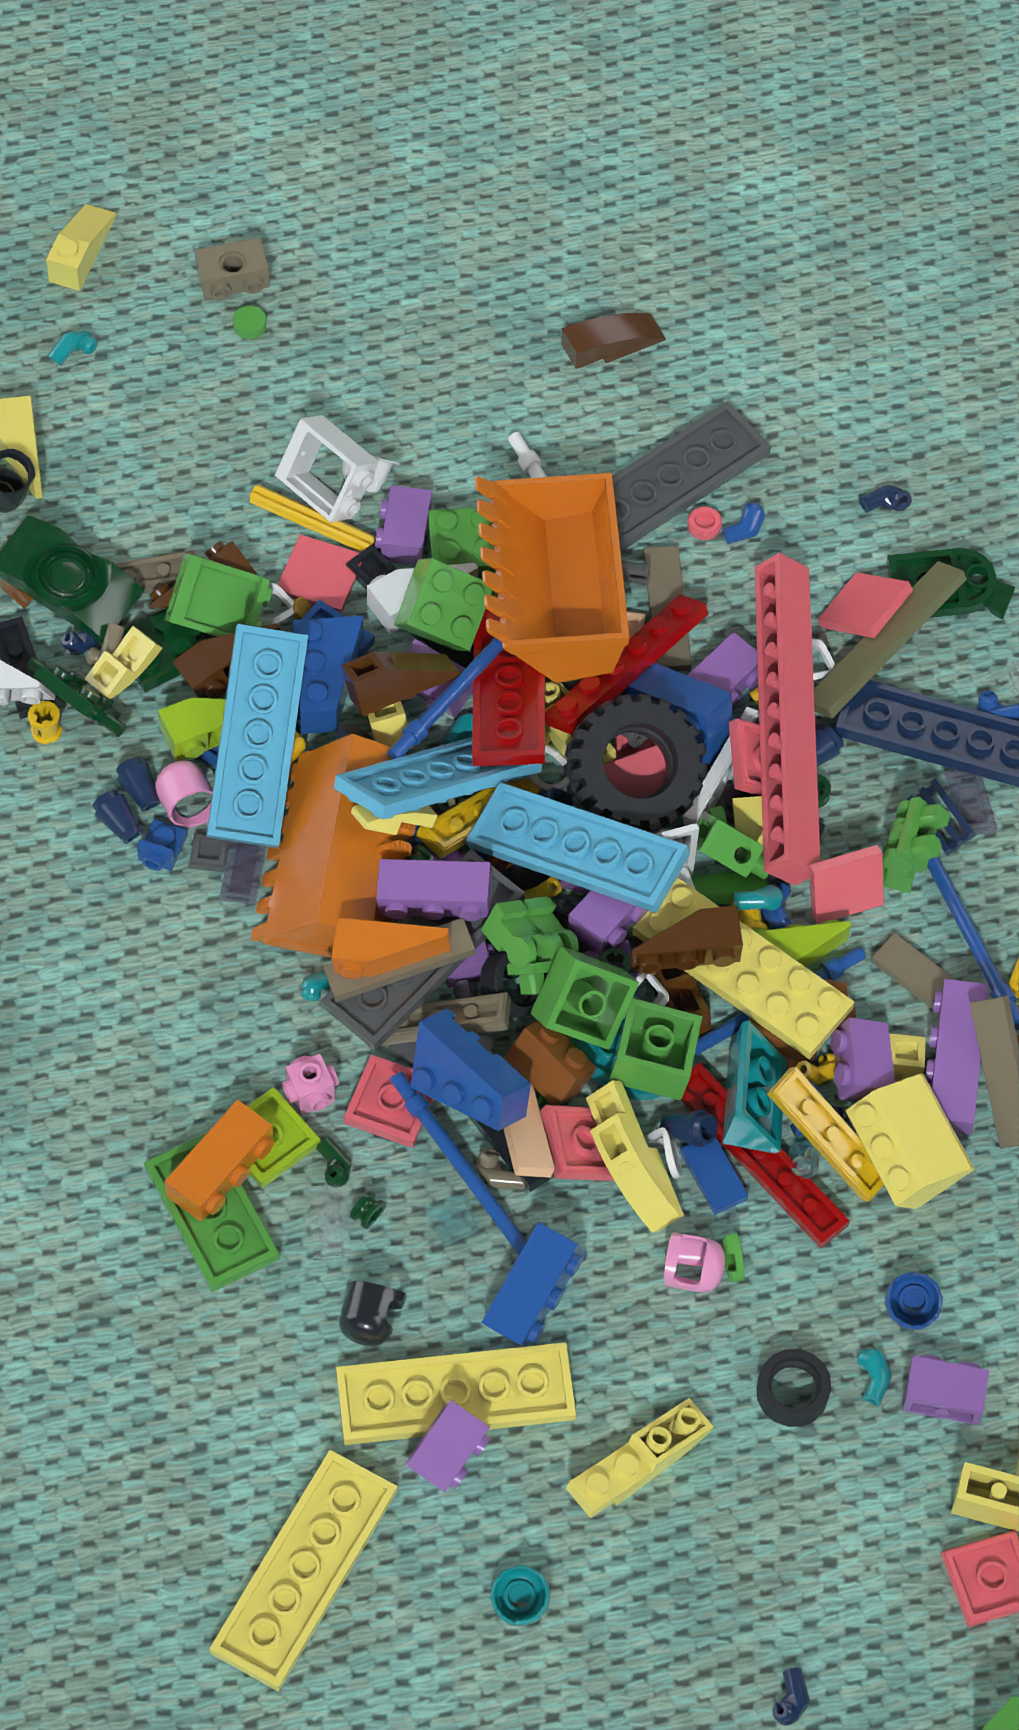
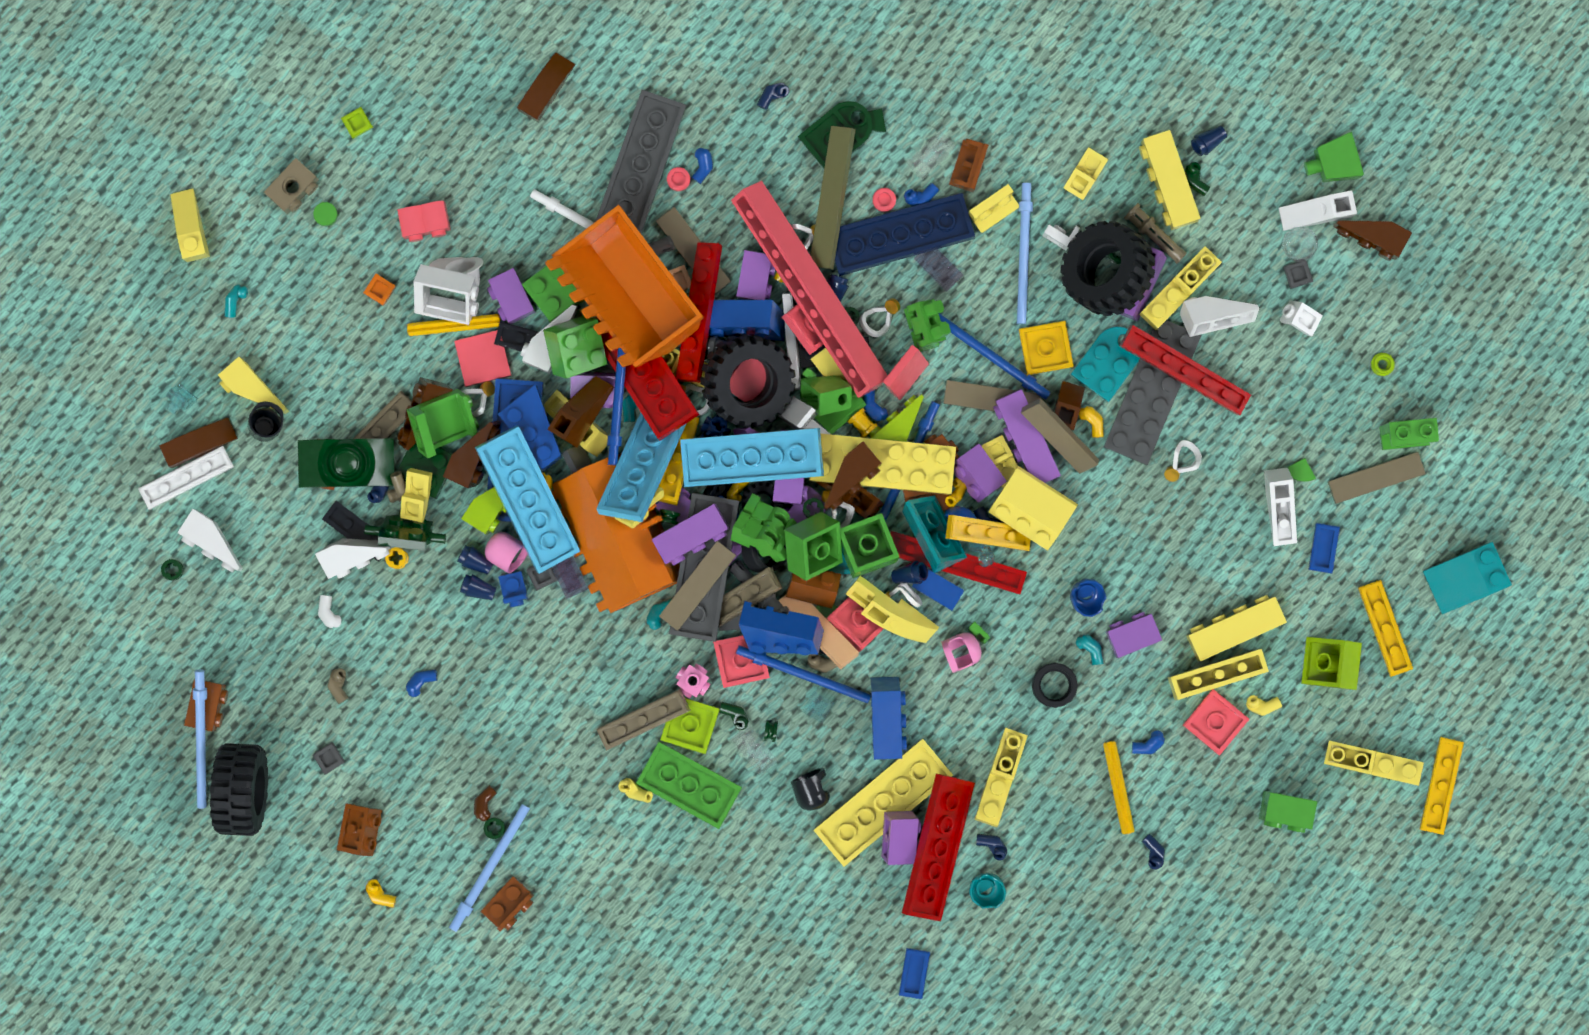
camera: 30 degrees left, 25 degrees up
(134, 1173) = (633, 791): none -> light yellow arm
(210, 1090) = (643, 719): none -> dark tan tile
(220, 1161) = (679, 760): orange brick -> none
(252, 433) = (379, 289): none -> orange tile
(303, 1570) = (868, 946): light yellow plate -> none
(342, 1648) = (914, 973): none -> blue tile
(359, 254) = (357, 122): none -> lime tile
(361, 389) = (424, 220): none -> coral brick
(379, 947) = (683, 593): orange slope -> none
(490, 1493) = (938, 847): none -> red plate
(572, 1544) = (995, 845): none -> dark blue arm
(767, 898) = (865, 414): teal arm -> none
(796, 1580) = (1118, 787): none -> yellow axle
(865, 605) = (806, 179): coral tile -> none
(877, 1552) = (1151, 746): none -> blue arm
(879, 805) = (891, 306): none -> white piece
(950, 687) = (884, 199): none -> coral tile
(958, 841) = (911, 281): dark blue tile -> none

